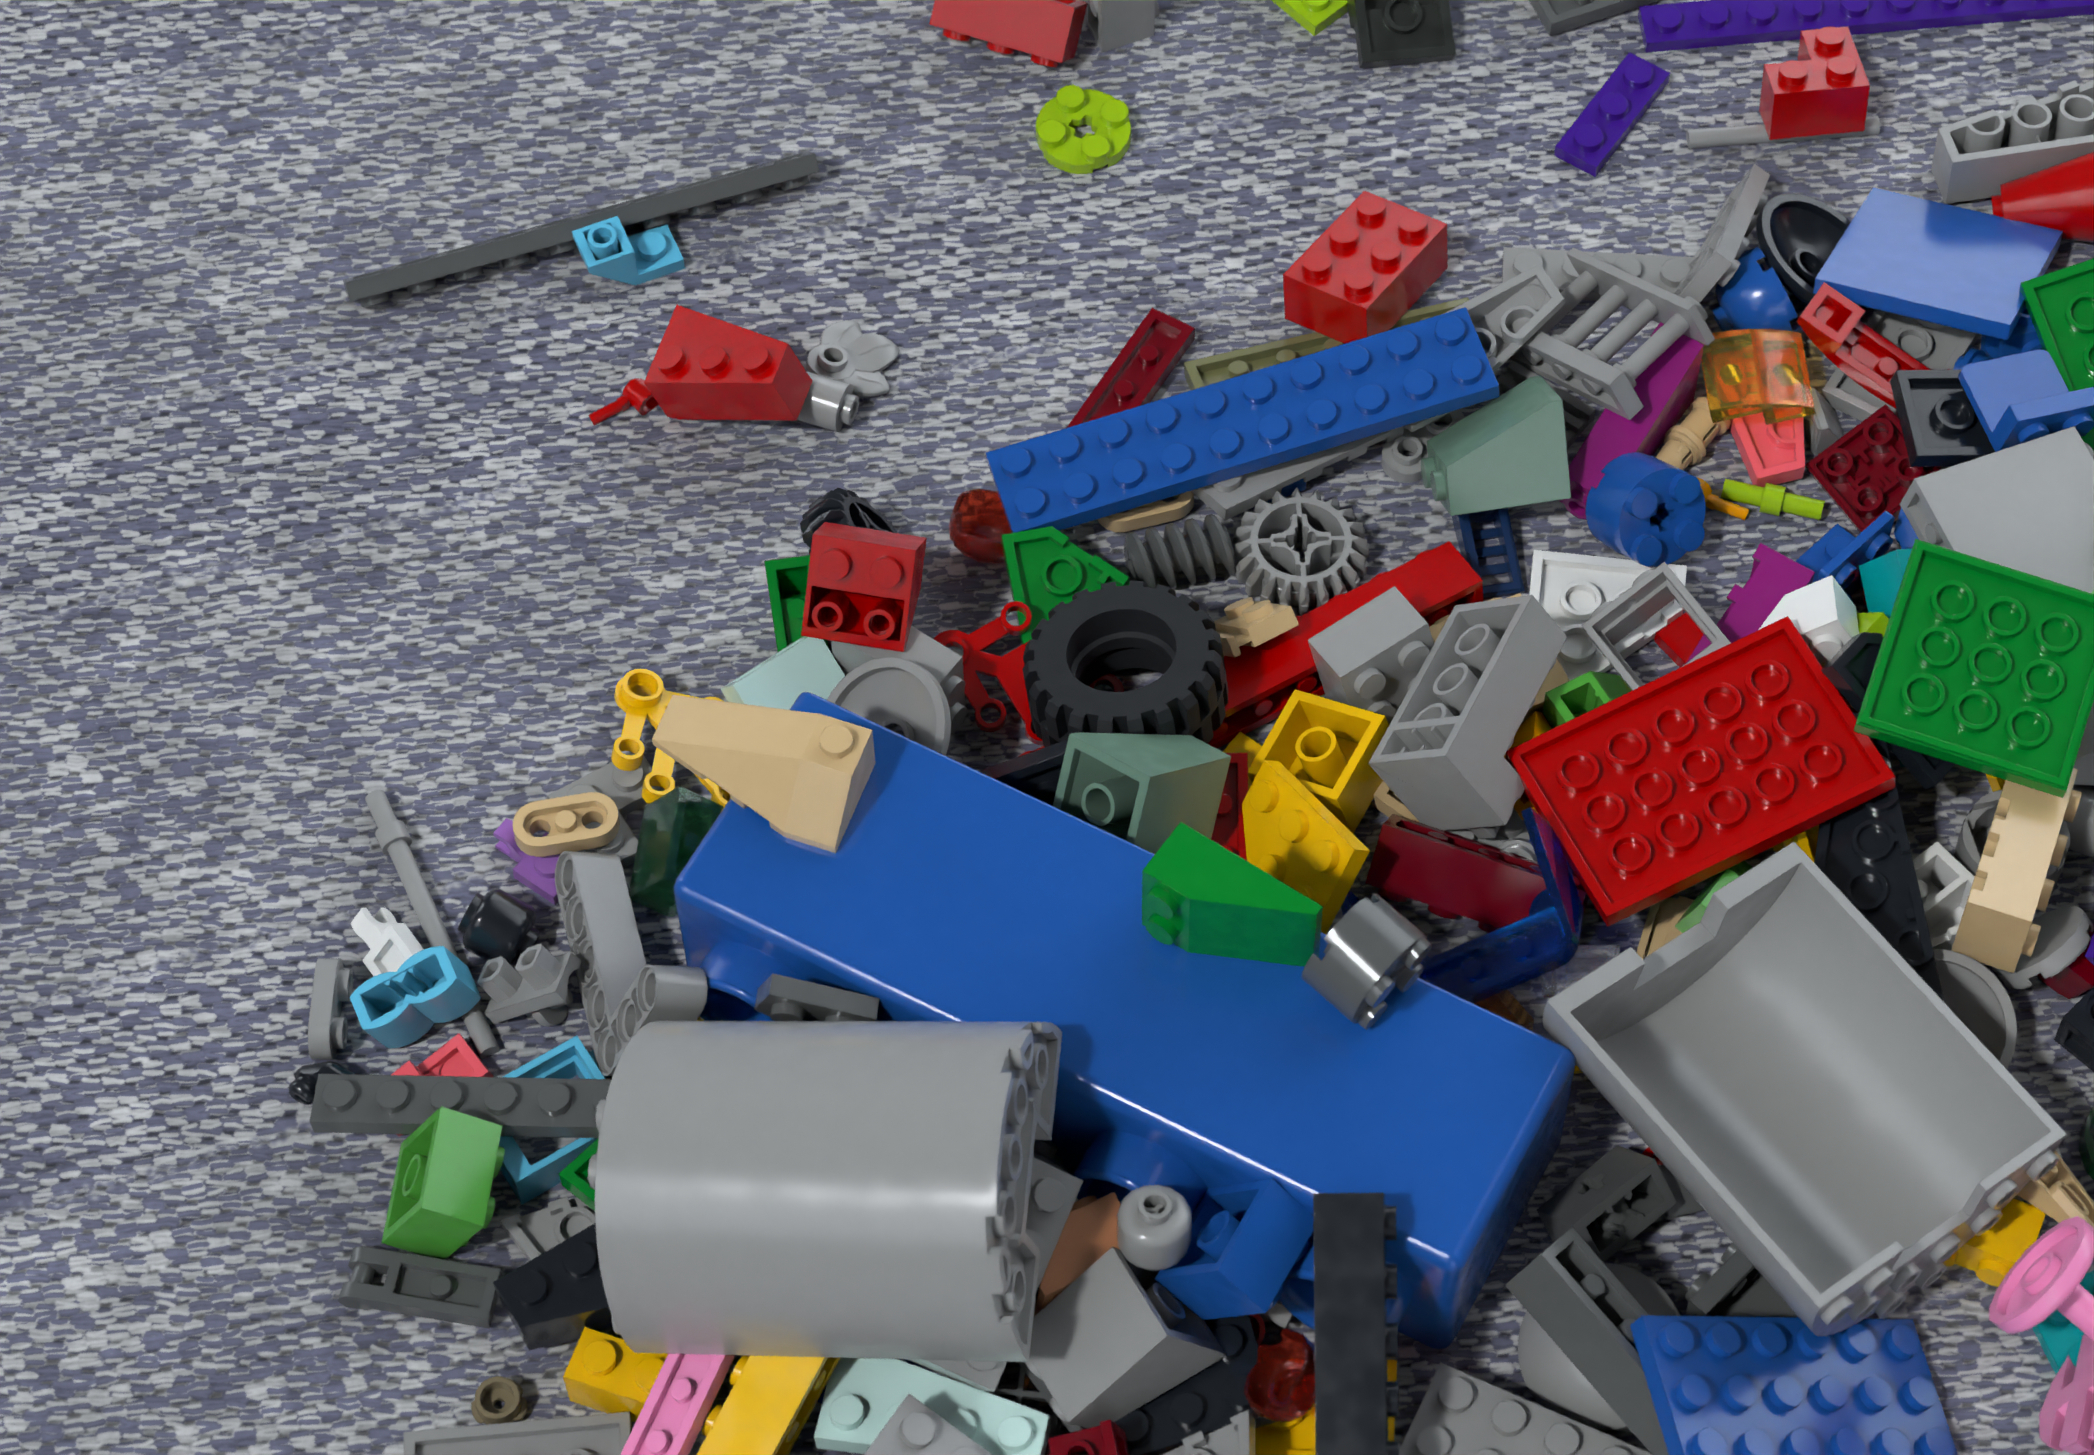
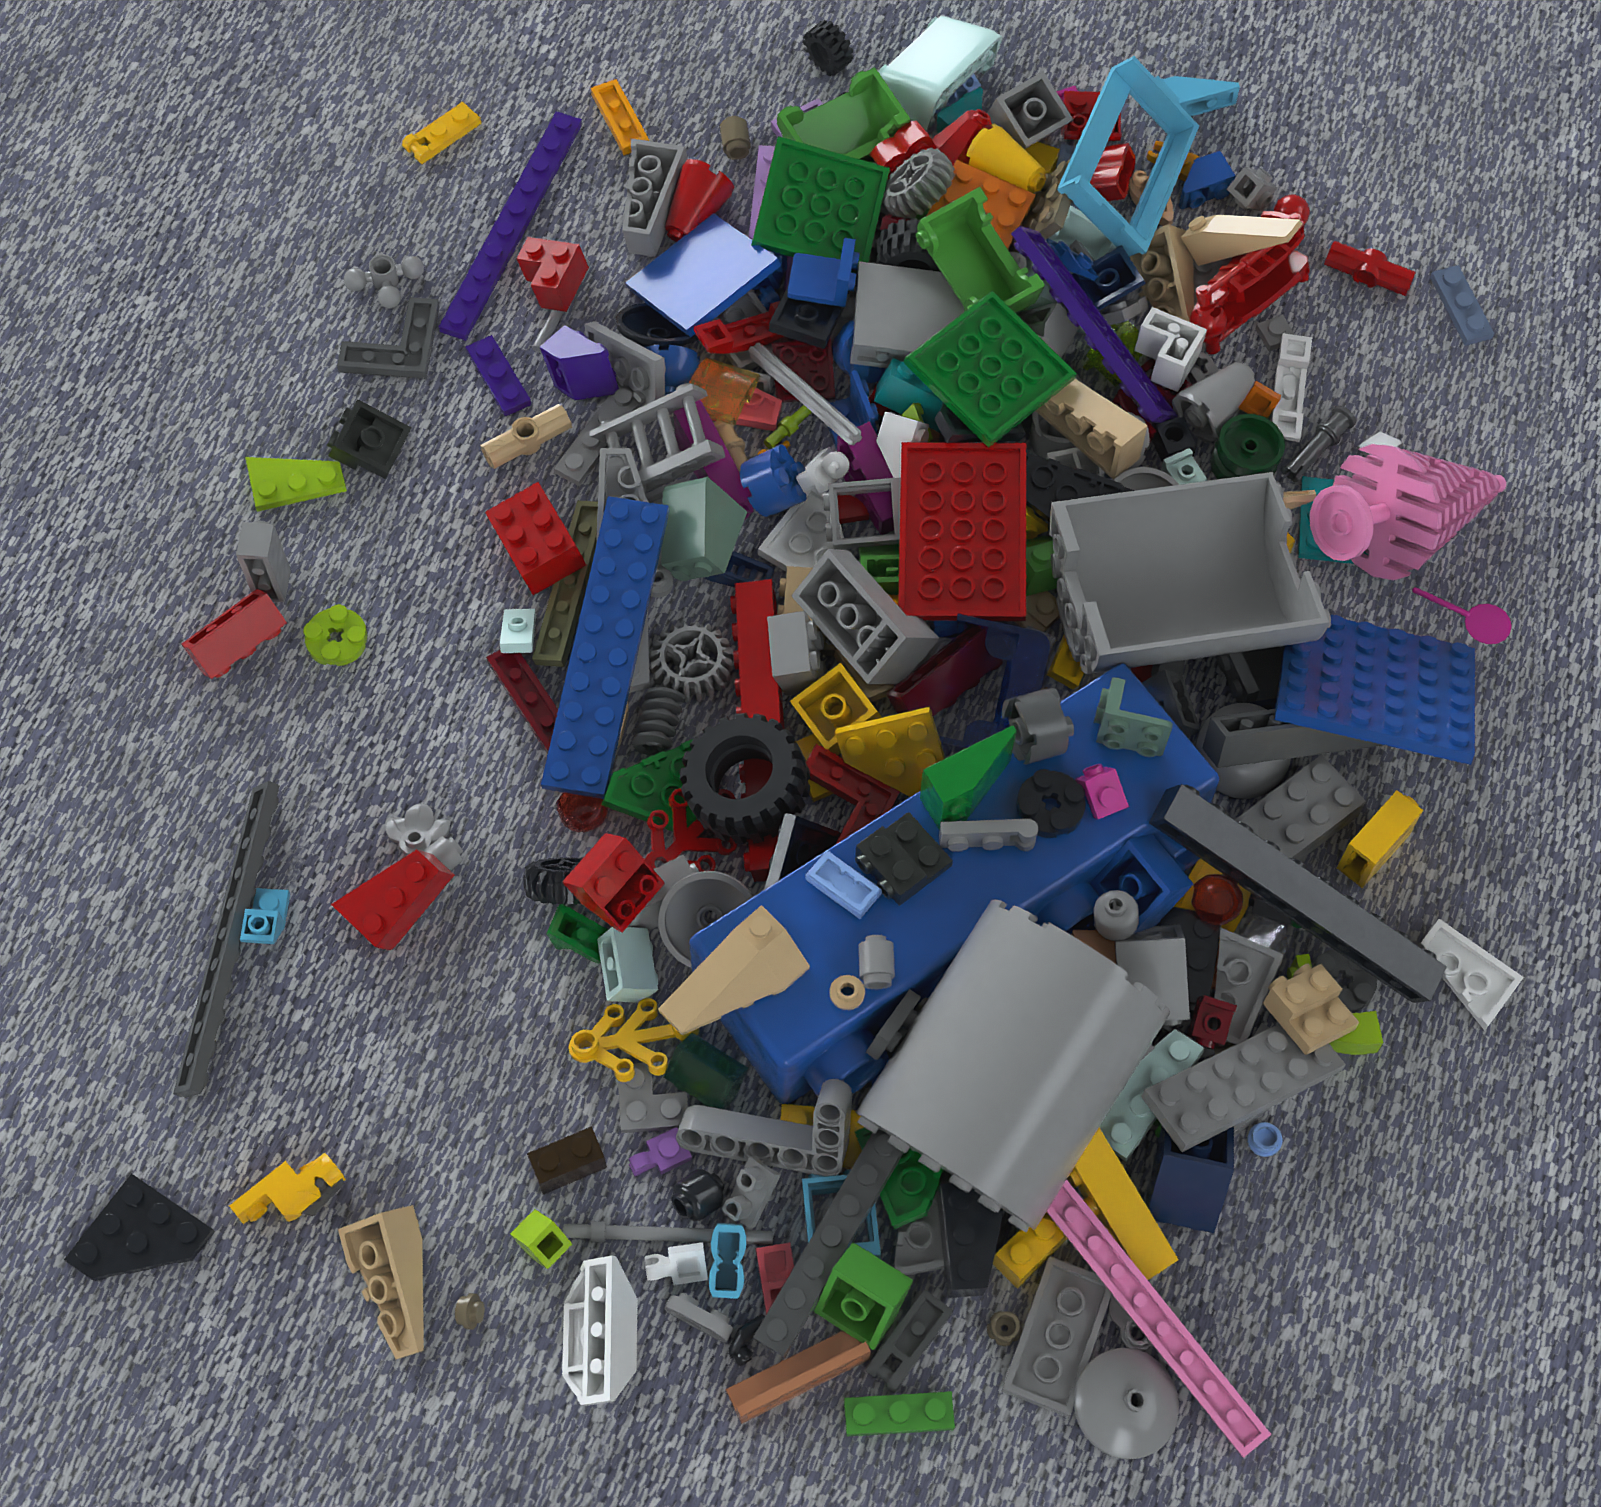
camera: 65 degrees left, 5 degrees up
(144, 337) = (138, 1234): none -> black plate
(211, 738) = (469, 1311): none -> dark tan plate
(247, 607) = (391, 1262): none -> tan wedge
(249, 902) = (599, 1332): none -> white wedge
(274, 464) = (291, 1192): none -> yellow plate
(302, 1165) = (796, 1375): none -> nougat fence
(313, 1321) = (899, 1413): none -> bright green plate
(341, 768) = (541, 1239): none -> lime brick
(468, 748) = (567, 1160): none -> dark brown brick
(566, 823) = (655, 1125): tan plate -> none
(633, 394) = (369, 958): red hand -> none
(817, 923) = (847, 1002): none -> tan plate
(880, 923) = (876, 962): none -> light grey brick
(979, 831) = (843, 884): none -> light blue plate
(1062, 888) = (902, 858): none -> pearl dark grey plate
(1142, 784) = (830, 801): sand green slope -> none
(1160, 978) = (988, 834): none -> light grey plate
(1214, 323) = (517, 631): none -> light aqua plate
(1253, 624) = (731, 700): tan plate -> none
(1266, 1015) = (1055, 785): none -> black plate
(1323, 1102) = (1102, 790): none -> dark pink bracket
(1445, 1050) = (1128, 729): none -> sand green bracket
(1530, 189) = (513, 444): none -> tan piece
(1676, 184) = (578, 365): none -> dark purple slope
(1703, 560) = (823, 469): none -> white hips
(1811, 475) = (805, 394): none -> light grey axle
(2064, 1054) = (1181, 464): none -> light aqua brick

